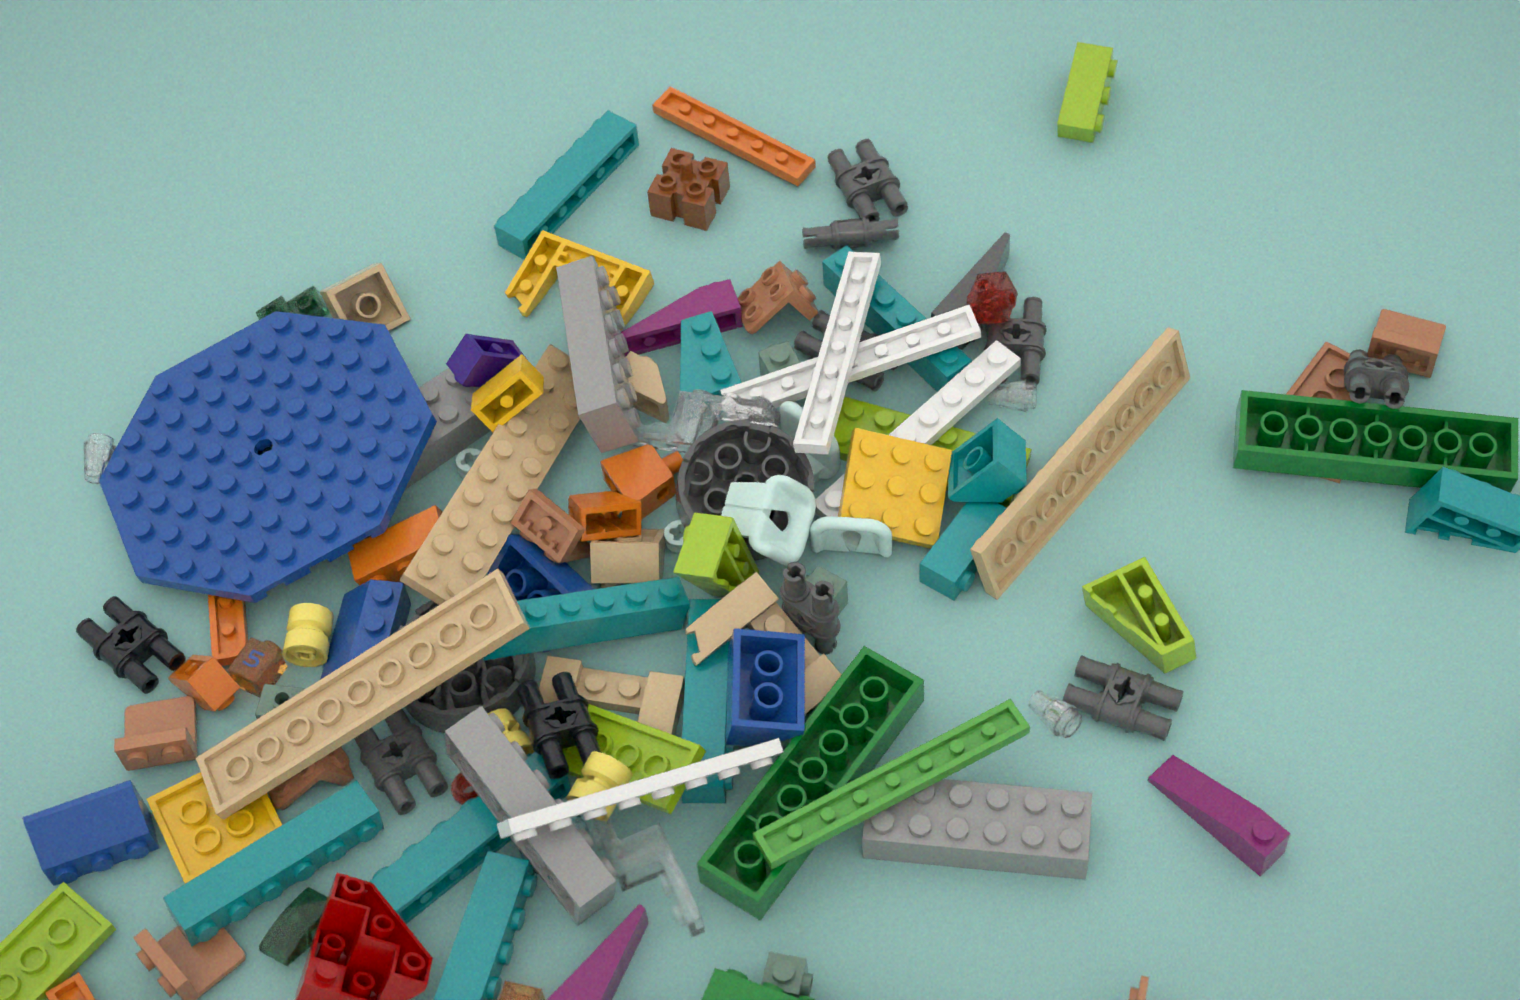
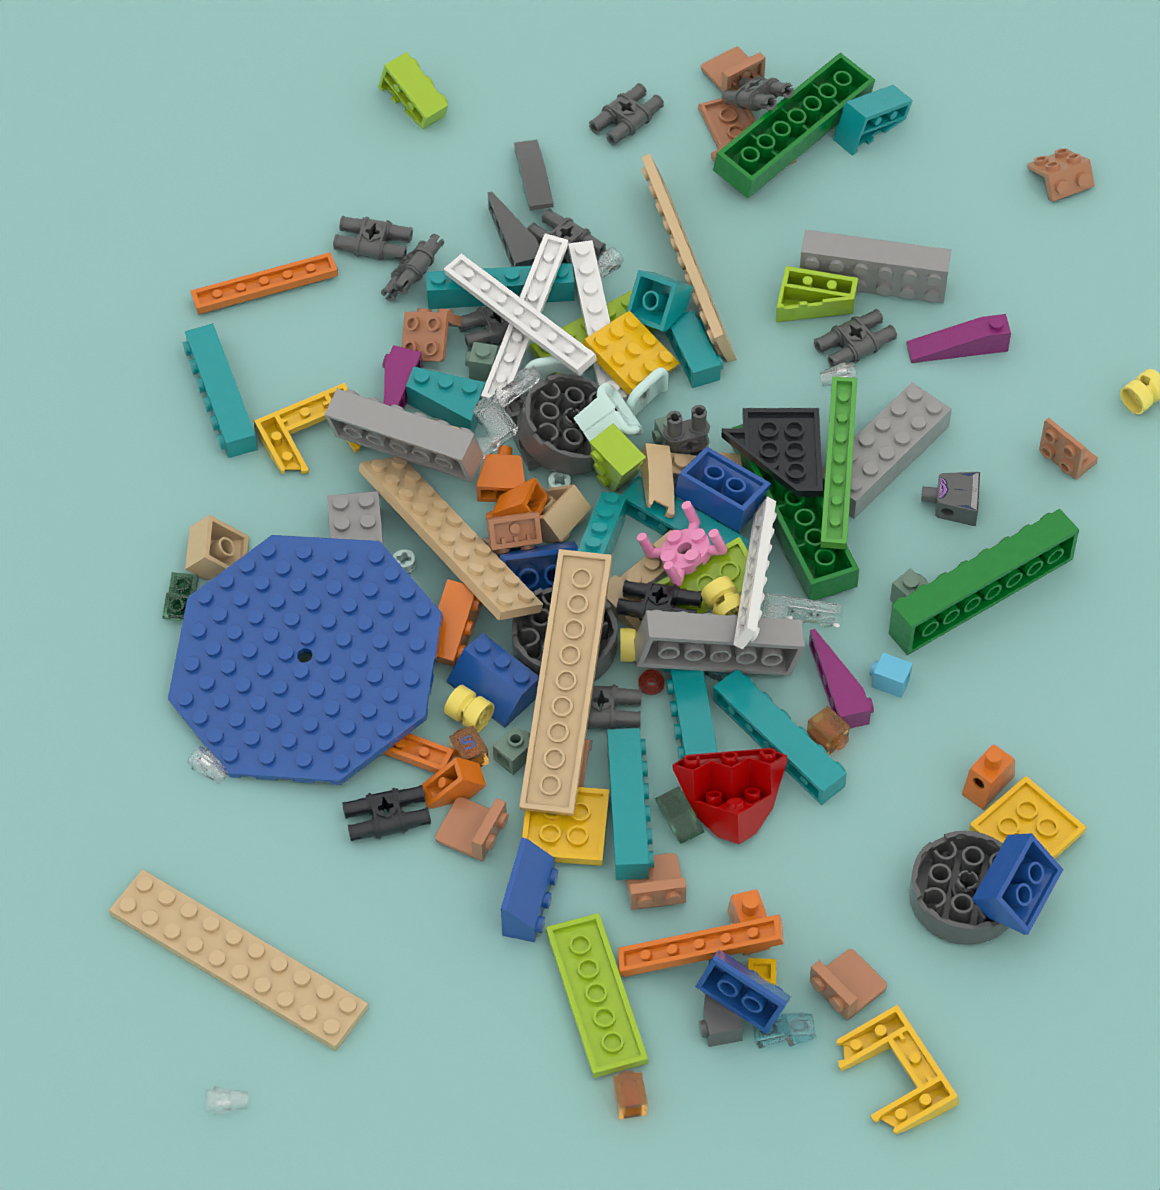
camera: 60 degrees left, 0 degrees up
(481, 358) = (355, 497): dark purple slope -> none
(507, 393) = (395, 495): yellow brick -> none
(659, 691) = (677, 541): none -> bright pink plate
(689, 189) = (290, 328): dark orange brick -> none
(870, 712) = (783, 446): none -> black wing
(973, 949) = (955, 497): none -> dark grey torso
(992, 297) = (540, 222): clear red brick -> none
(1072, 259) = (533, 175): none -> dark grey slope
(1240, 652) = (880, 265): none -> light grey brick
(1250, 296) = (626, 114): none -> dark grey pin

